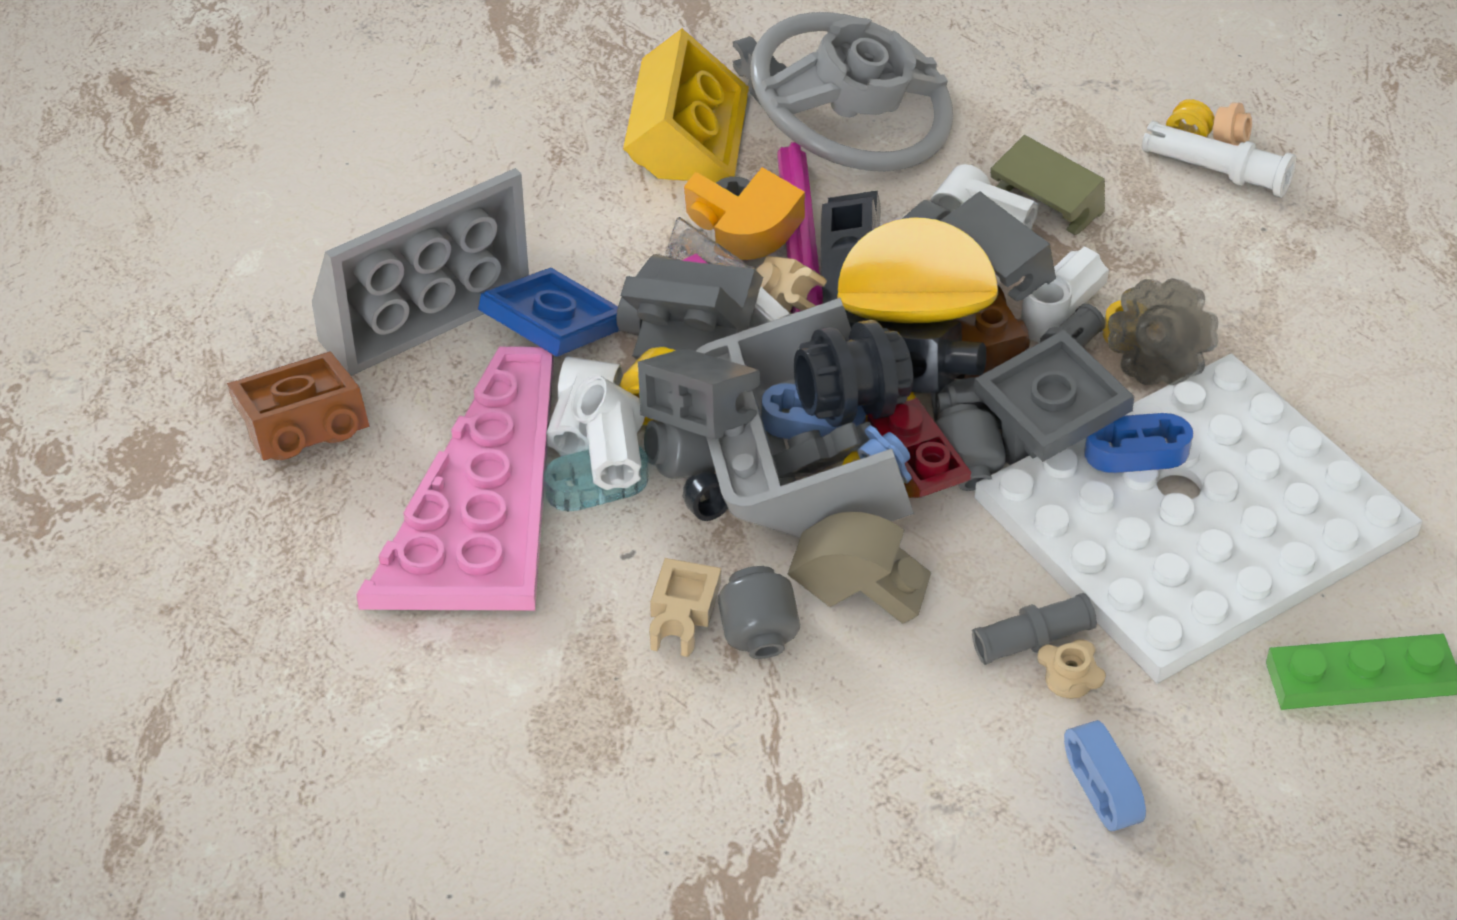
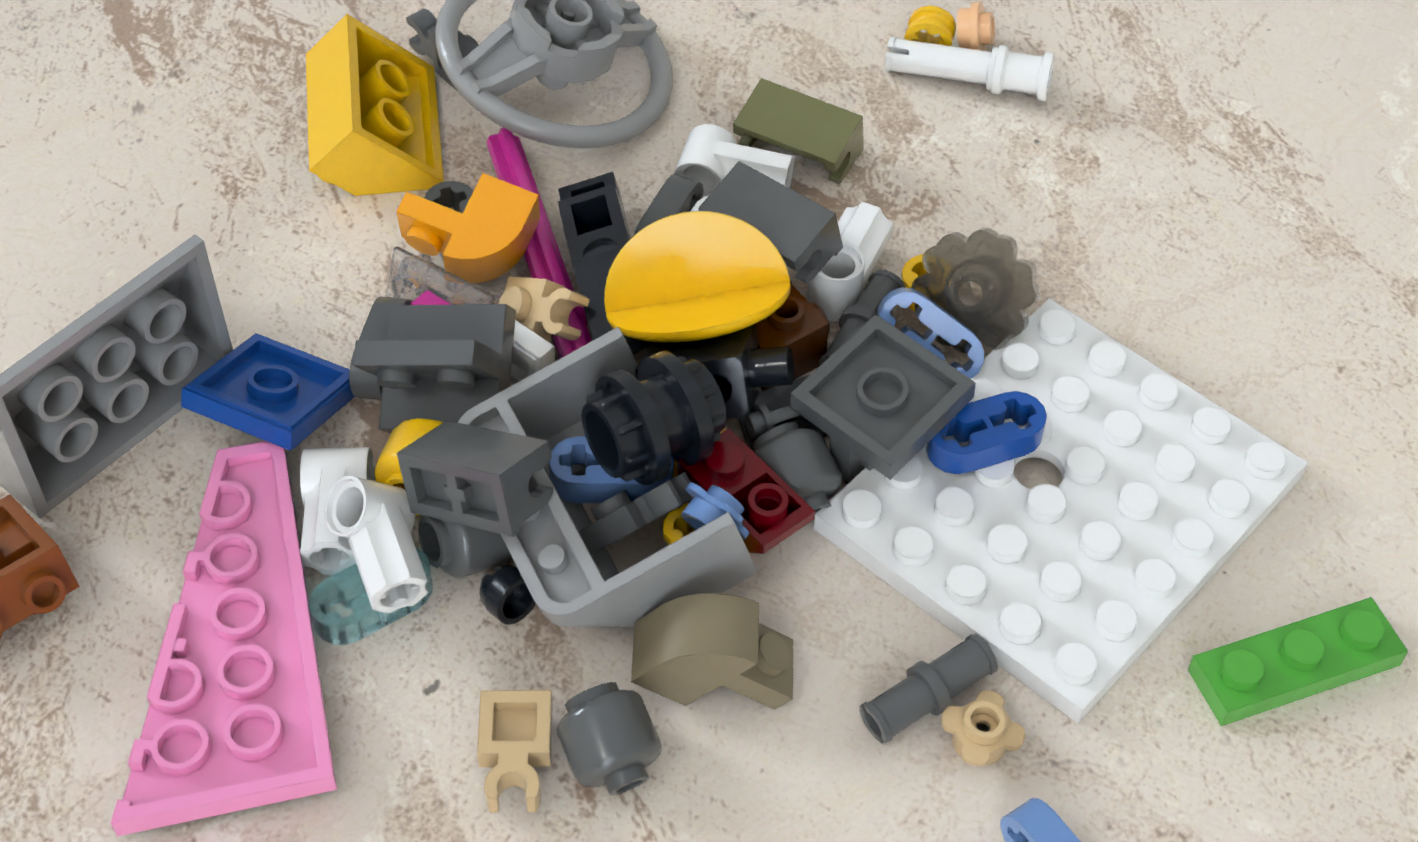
camera: 15 degrees left, 5 degrees up
(1123, 351) = (938, 323): none -> medium blue beam

